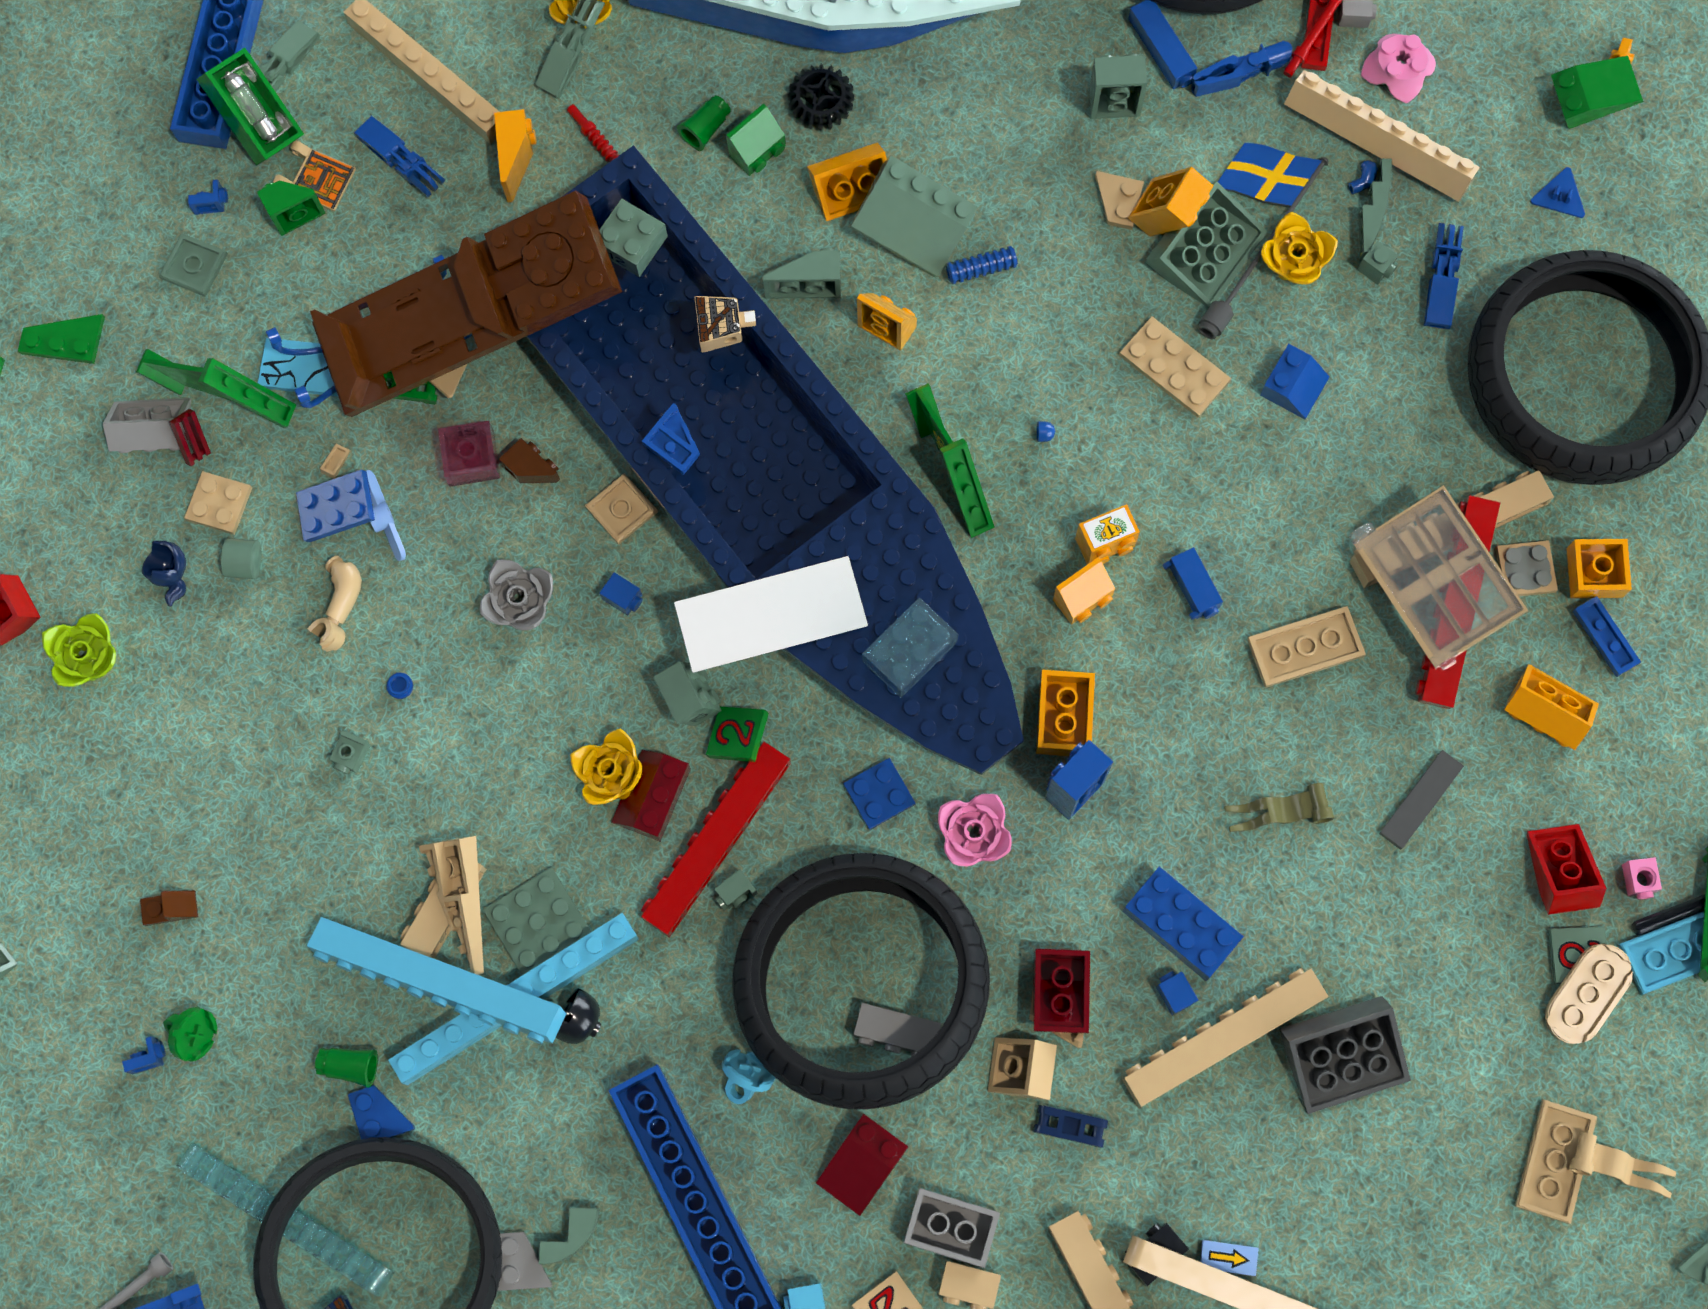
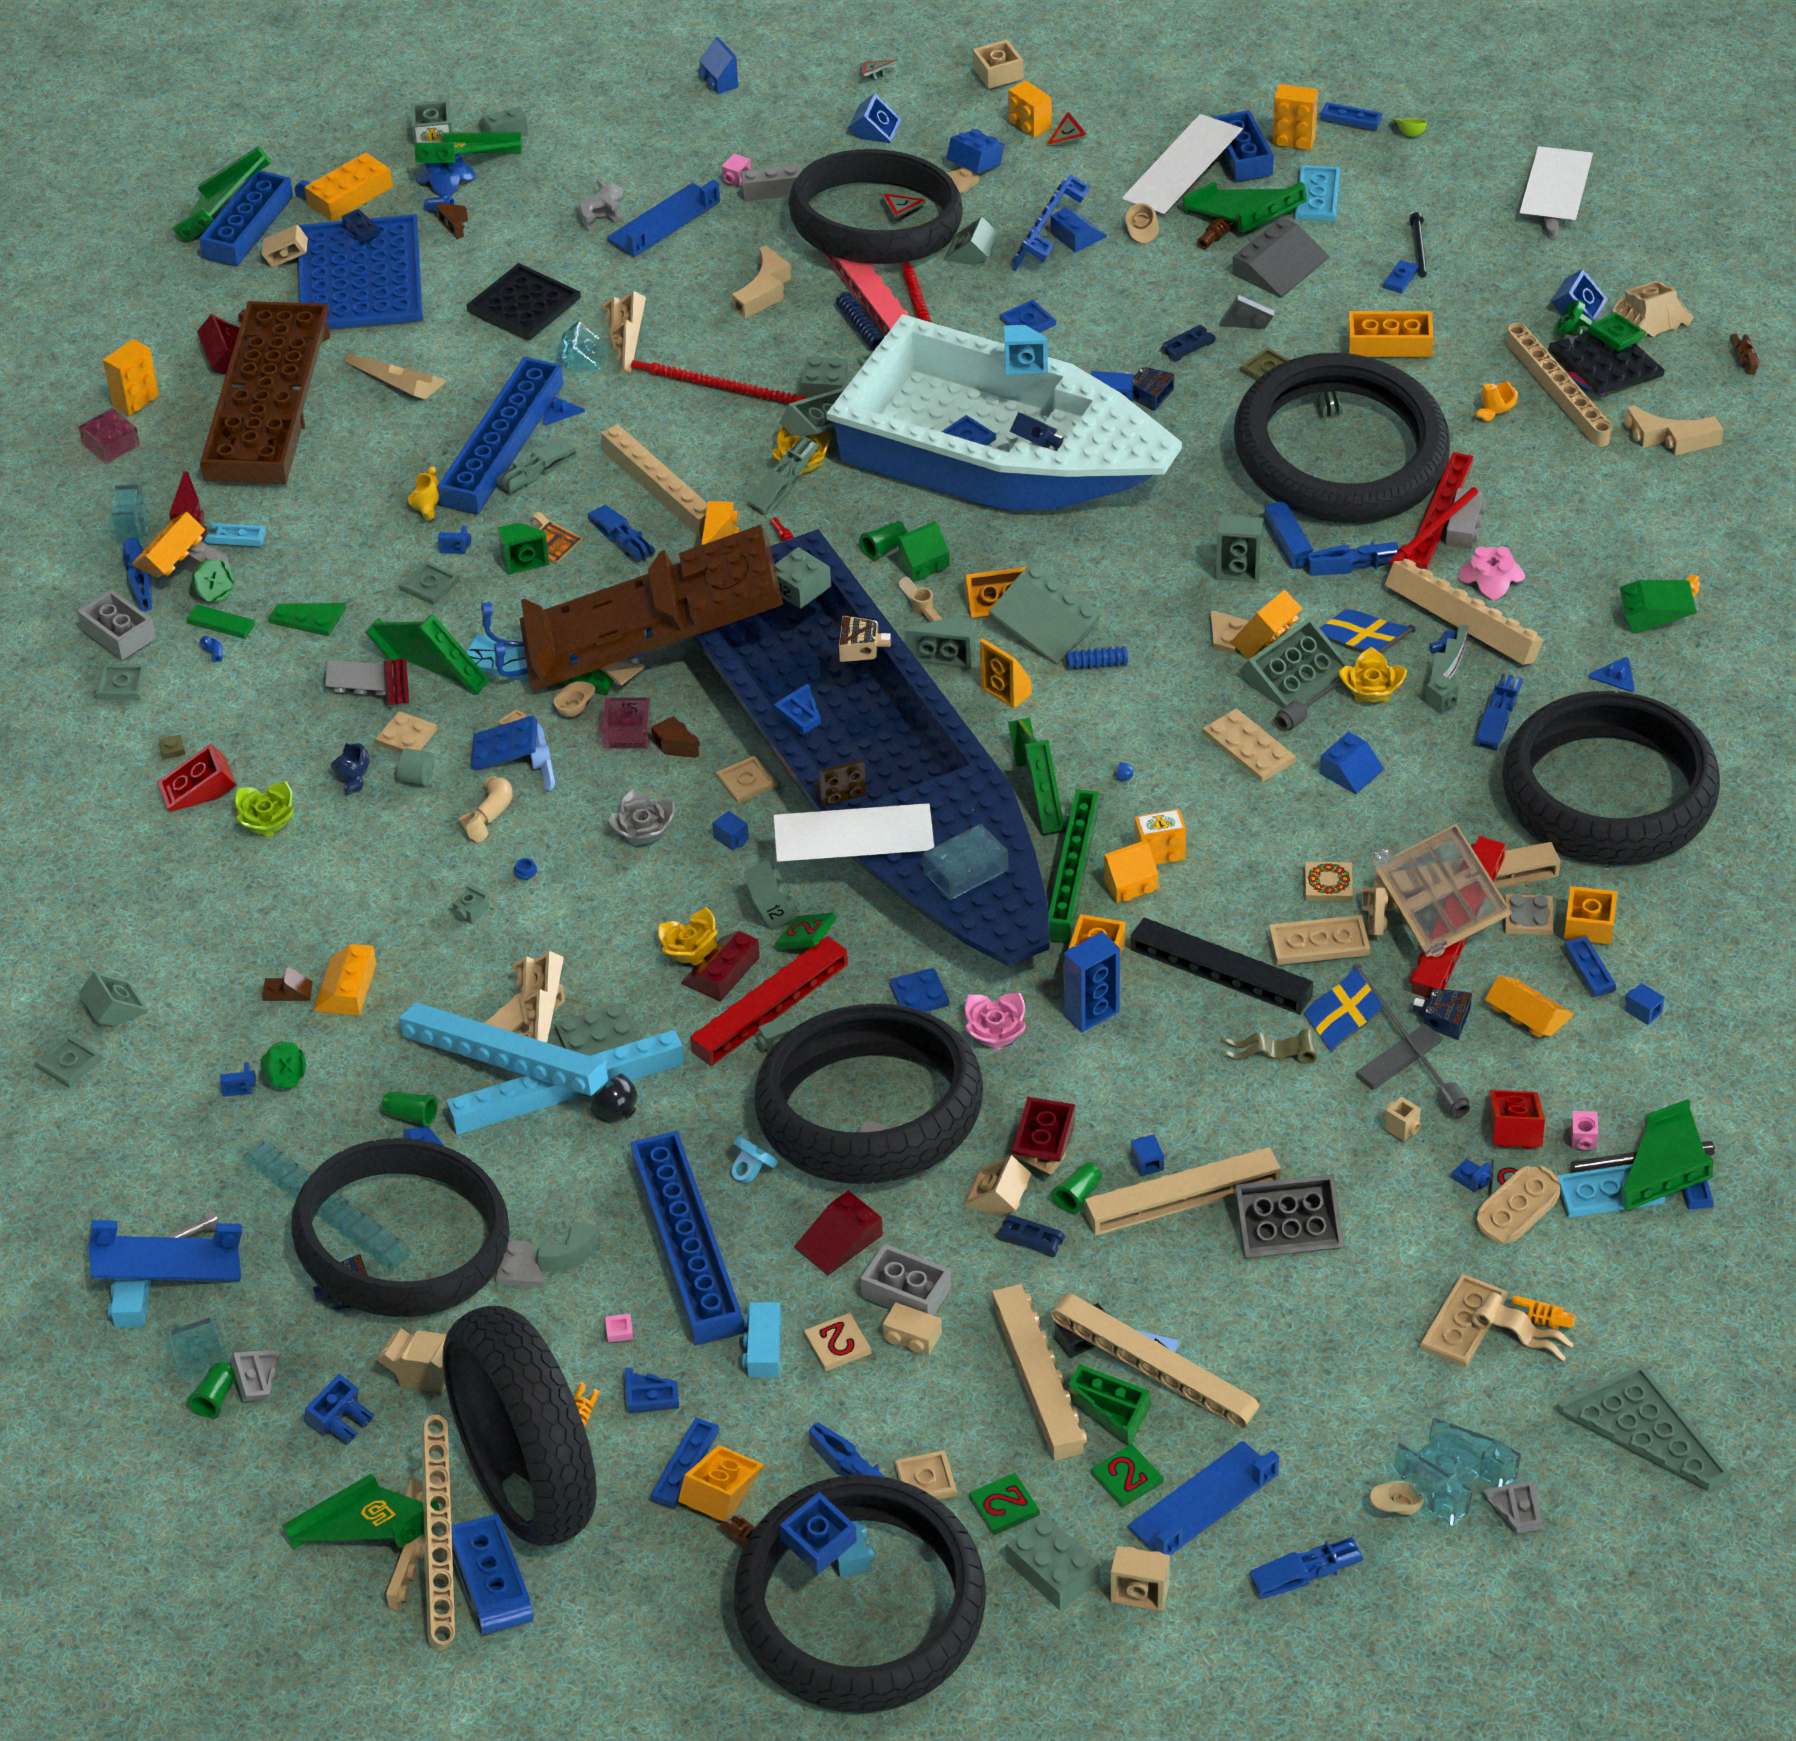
camera: 10 degrees right, 30 degrees down
(157, 136) = (425, 494): none -> yellow piece
(233, 889) = (347, 981): none -> light orange slope
(250, 106) = (507, 477): green piece -> none
(400, 422) = (573, 698): none -> tan cap
(743, 552) = (841, 783): none -> dark brown bracket
(757, 198) = (921, 599): none -> tan piece
(837, 105) = (986, 535): black gear -> none
(1016, 586) = (1073, 865): none -> green brick
(1110, 1053) = (1076, 1188): none -> green plant
(1182, 923) = (1163, 1107): blue brick -> none
(1195, 584) = (1230, 884): blue brick -> none
(1207, 704) = (1222, 965): none -> black brick
(1299, 556) = (1328, 881): none -> tan tile
(1355, 742) = (1353, 1006): none -> flag
(1365, 596) = (1374, 901): none -> tan plate
(1445, 898) = (1402, 1118): none -> tan brick
(1462, 731) = (1445, 1011): none -> torso
(1530, 957) = (1472, 1175): none -> blue bracket
(1640, 1142) = (1545, 1313): none -> light orange hinge
(1675, 683) = (1644, 1003): none -> blue brick

